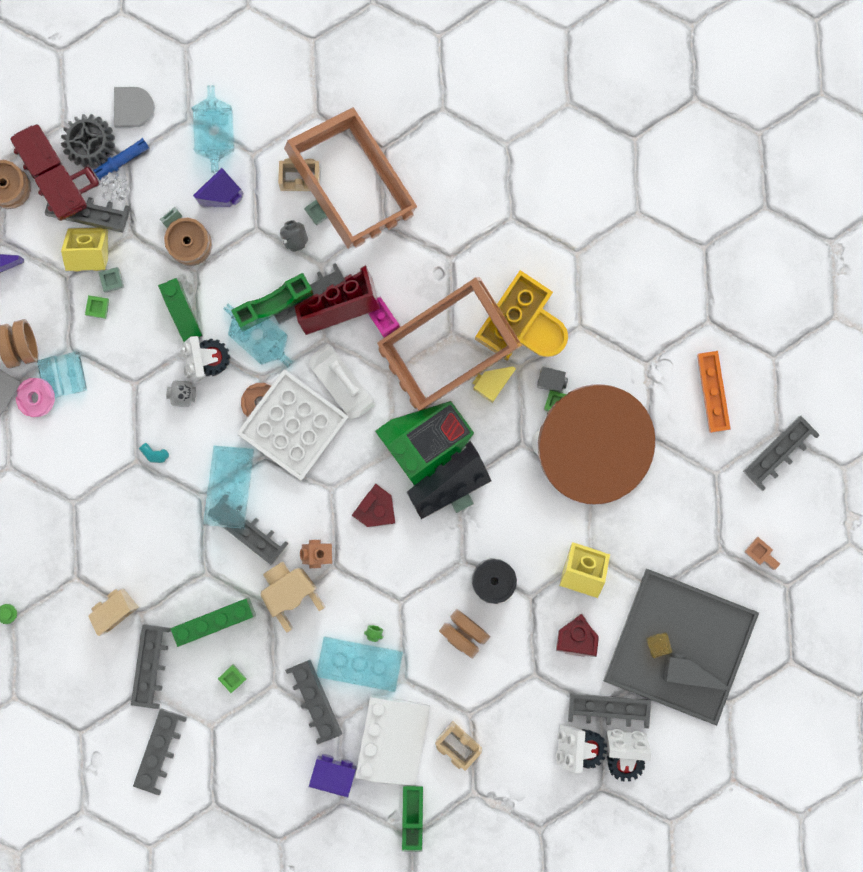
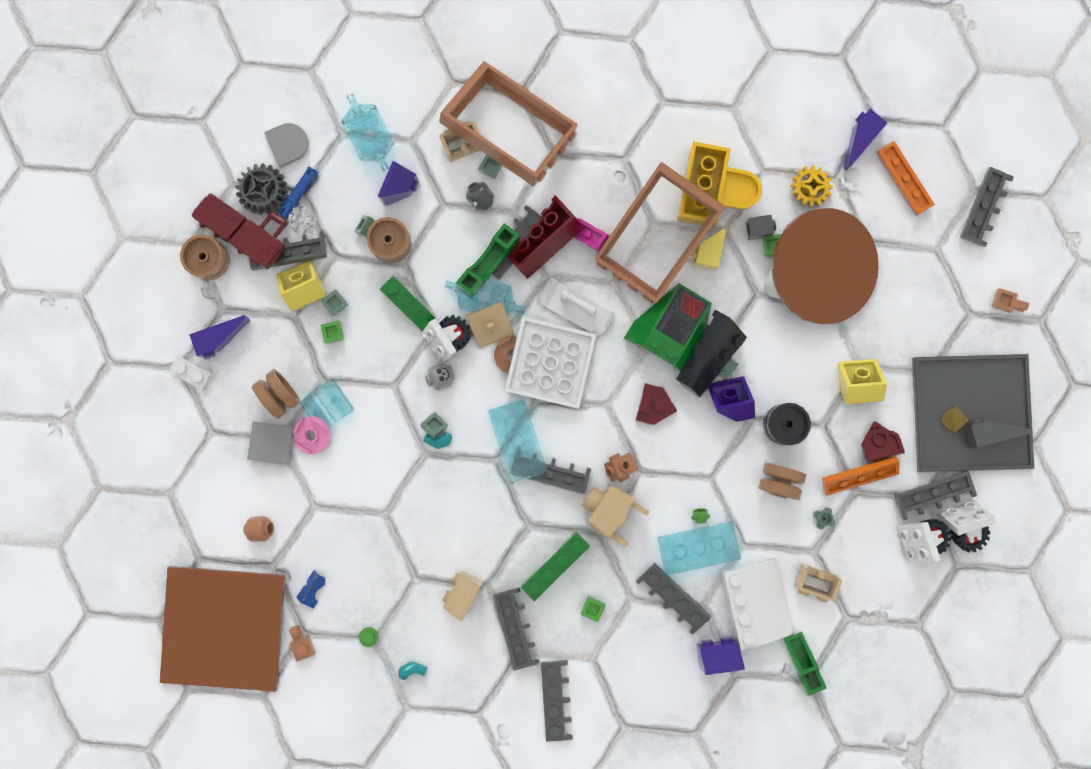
camera: 20 degrees left, 0 degrees up
(34, 661) = (410, 668): none -> teal arm
(155, 438) = (434, 425): none -> sand green plate
(250, 364) = (490, 324): none -> tan piece
(452, 534) = (733, 399): none -> dark purple slope
(492, 692) = (819, 517): none -> sand green plate
(545, 661) = (860, 475): none -> orange plate
(627, 365) = (817, 180): none -> yellow gear
(693, 330) = (863, 133): none -> dark purple slope

